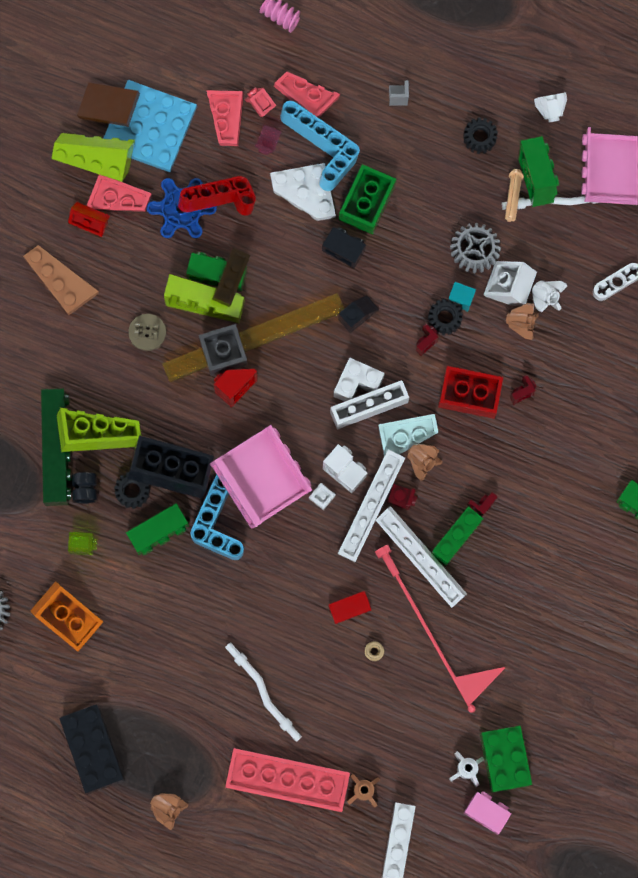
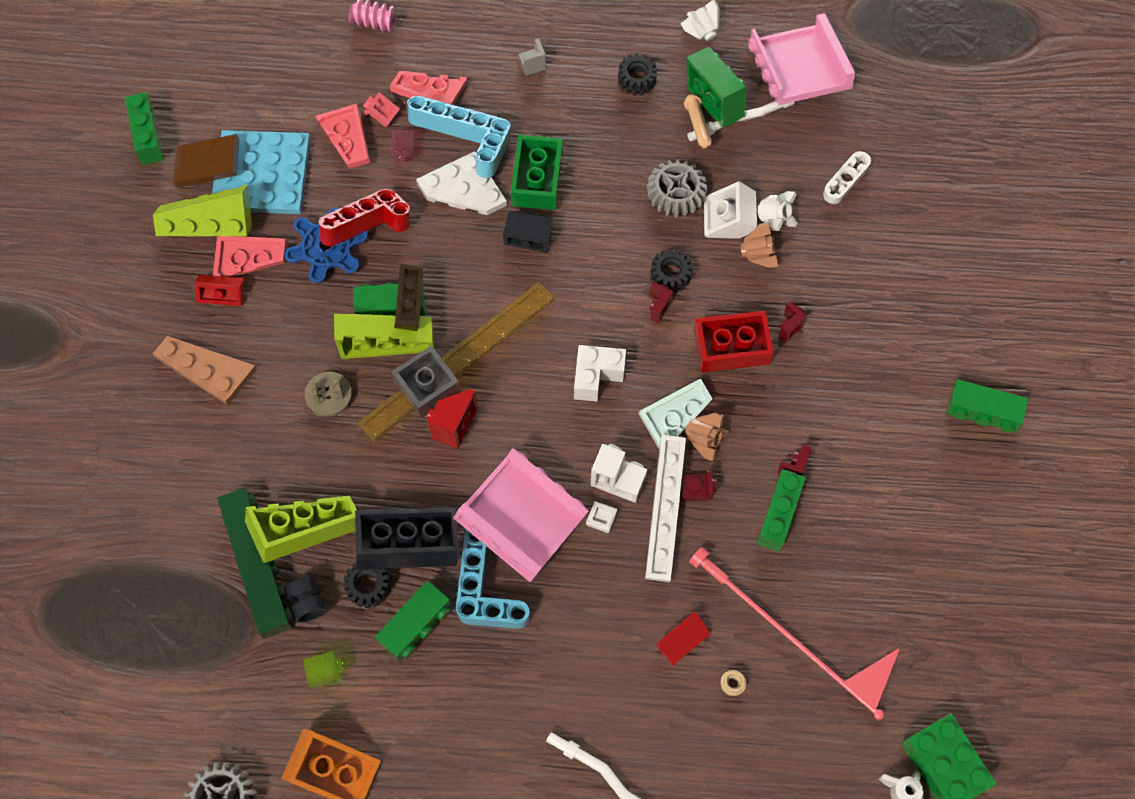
camera: 15 degrees left, 10 degrees down
(66, 59) = (144, 128): none -> green brick
(357, 313) = (568, 298): black slope -> none
(369, 404) = (620, 392): white brick -> none
(421, 557) = (748, 549): white plate -> none
(462, 295) = (682, 240): teal panel -> none

